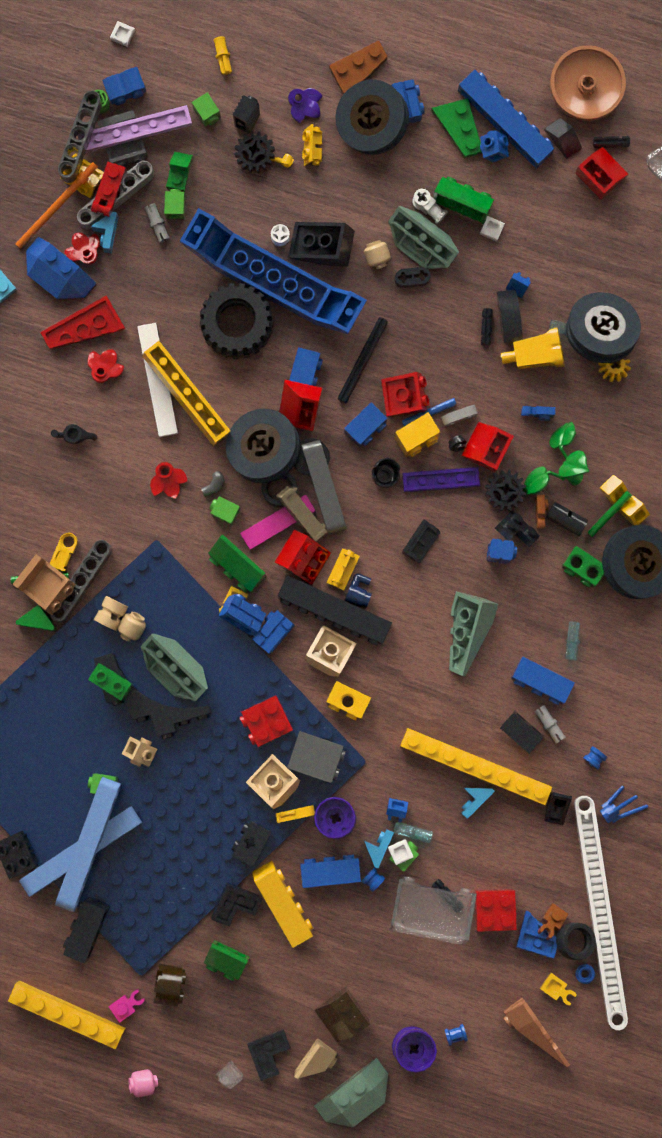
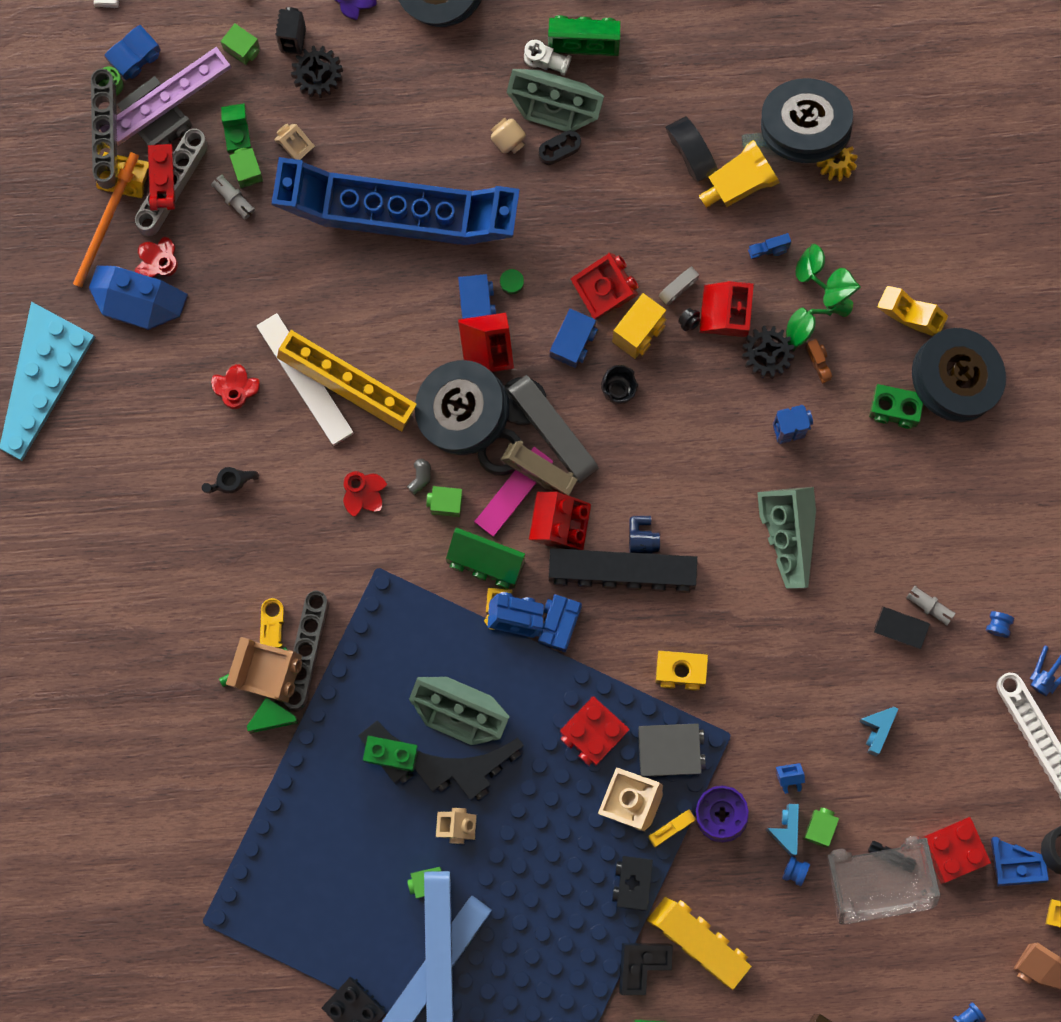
camera: 20 degrees left, 5 degrees down
(85, 324) = (194, 345): red wing -> none
(108, 226) = (176, 223): dark azure slope -> none
(111, 613) = (357, 674): tan wheel -> none
(131, 626) = (388, 680): tan head -> none
(217, 198) = (294, 141): none -> tan bracket
(233, 296) = (367, 244): black tyre -> none
(280, 231) = (384, 151): white wheel -> none
(286, 161) = (358, 69): yellow hand -> none
(311, 137) = (378, 30): yellow hinge -> none
(322, 243) = (438, 147): black slope -> none
(330, 652) = (636, 620): tan slope -> none
(330, 871) = (741, 881): blue brick -> none
(337, 364) = (511, 281): none -> green tile
(343, 569) = (613, 517): yellow hinge -> none
(362, 360) = (539, 265): black axle -> none
(400, 852) = (816, 823): white tile -> none
(413, 832) = (820, 796): clear light blue axle -> none
(421, 541) = (693, 449): black hinge -> none
(434, 410) = (647, 290): blue bar -> none
(441, 479) = (687, 369): dark purple tile -> none
(476, 766) = (863, 689): yellow brick -> none
(486, 329) = (669, 172): black axle -> none
(492, 228) = (630, 57): white tile -> none
(515, 525) = (795, 388): black plate -> none
(519, 284) = (687, 107): blue tile -> none
(542, 681) = (901, 558): blue brick -> none
(553, 920) = (1029, 835): dark orange plate -> none
(557, 808) = (979, 700): black slope -> none
(567, 519) = (853, 358): black pin -> none
(572, 640) = (917, 497): clear light blue axle -> none
(610, 513) = (901, 332): green bar -> none

